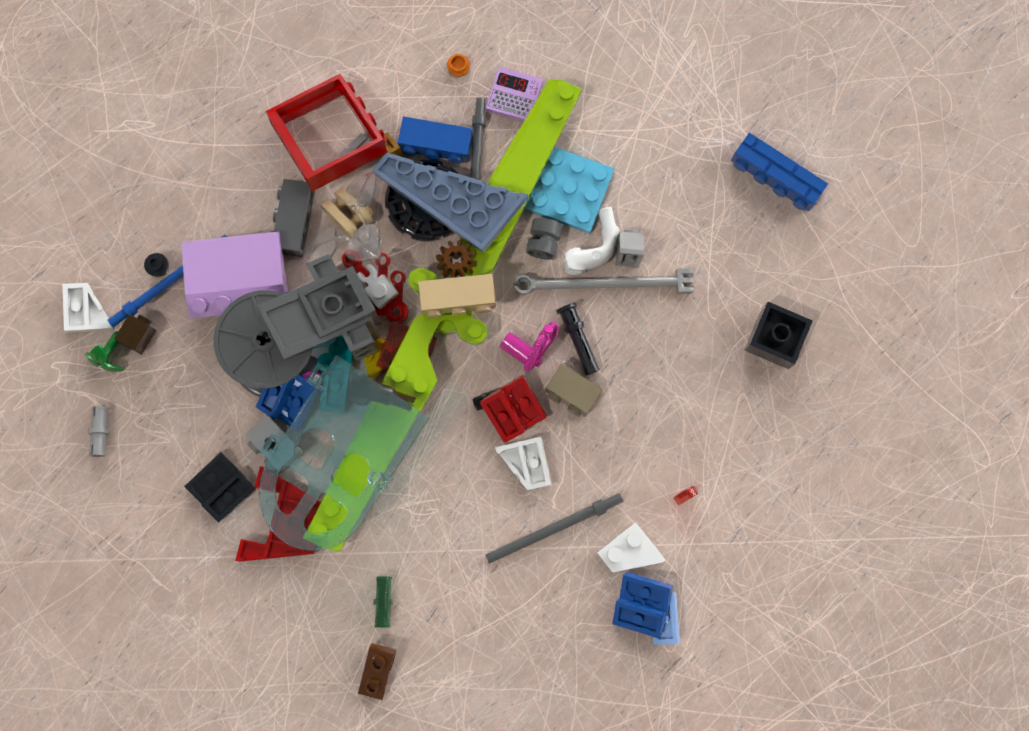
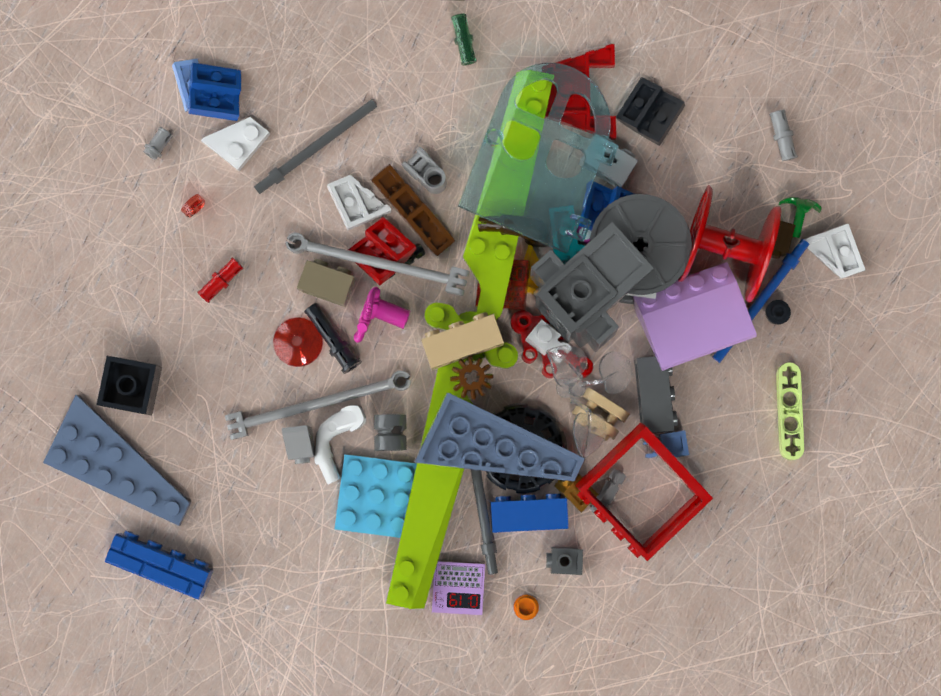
camera: 170 degrees right, 5 degrees up
(156, 312) = (741, 247): none -> red piece
(173, 177) = (794, 411): none -> yellowish green beam
(287, 169) = (675, 442): none -> medium blue plate
(409, 100) = (575, 561): none -> dark grey brick
(453, 478) = (423, 168): none -> light grey piece
(454, 358) = (449, 279): none -> light grey hinge
(475, 443) = (412, 210): none -> reddish brown slope
(609, 356) = (305, 352): none -> clear red dish
(673, 418) = (220, 280): none -> red pin
(709, 566) = (157, 143): none -> light grey pin
(811, 277) = (104, 459): none -> sand blue wing

